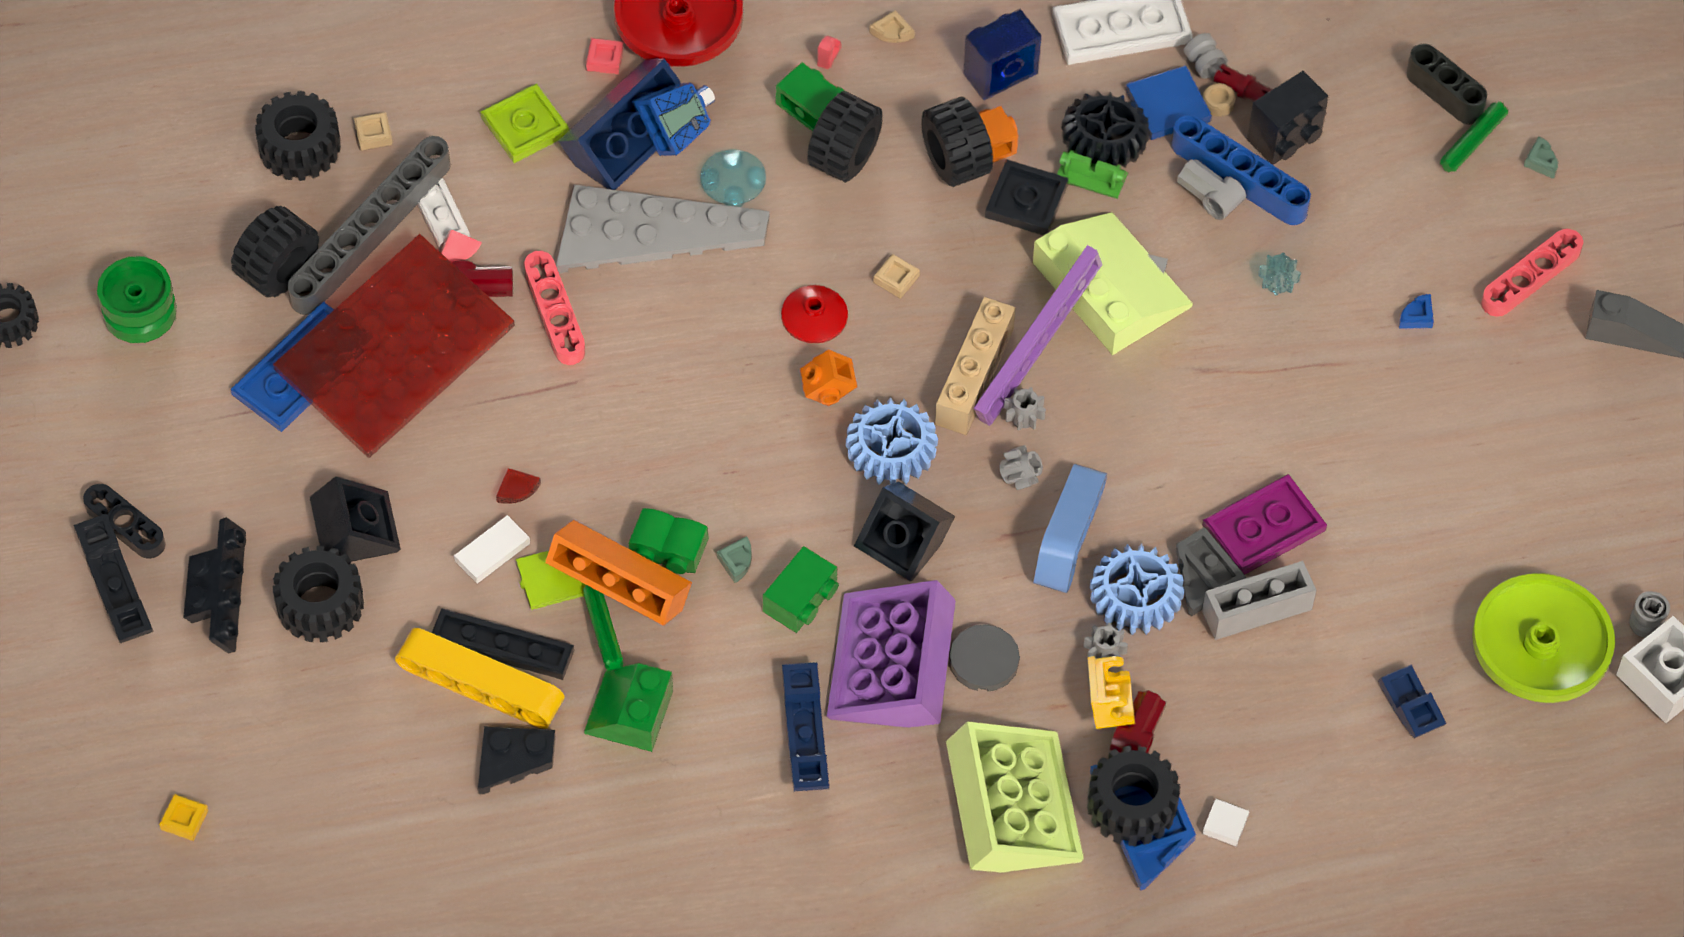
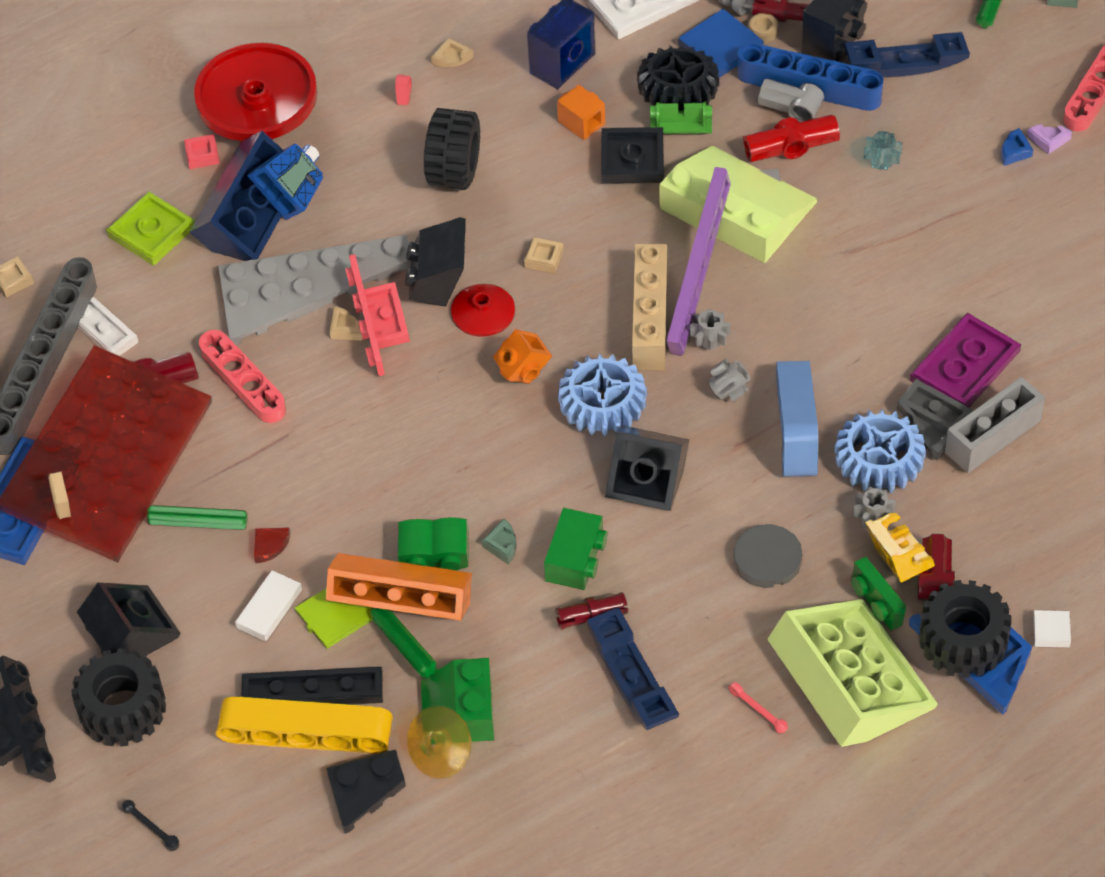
camera: 15 degrees left, 5 degrees down
(317, 748) = (171, 841): none -> black hinge
(332, 377) = (59, 495): none -> tan tile
(458, 438) = (197, 517): none -> axle
(459, 246) = (133, 348): coral tile -> none
(596, 737) = (451, 742): none -> clear yellow dish
(673, 287) = (344, 325): none -> tan tile
(710, 288) = (382, 315): none -> coral bracket
(733, 177) = (361, 216): clear light blue dish -> none
(779, 655) = (580, 612): none -> dark red pin
(782, 251) = (436, 262): none -> black slope
(805, 94) = (401, 130): green brick -> none
(892, 655) = (684, 580): medium lavender slope -> none
(924, 828) = (779, 725): none -> coral hinge
(957, 141) = (554, 123): black tyre -> none
(1074, 744) = (878, 593): none -> green plate
(1193, 231) = (791, 138): none -> red piece
(1350, 181) = (909, 60): none -> dark blue slope
(1457, 313) = (1049, 137): none -> lavender tile

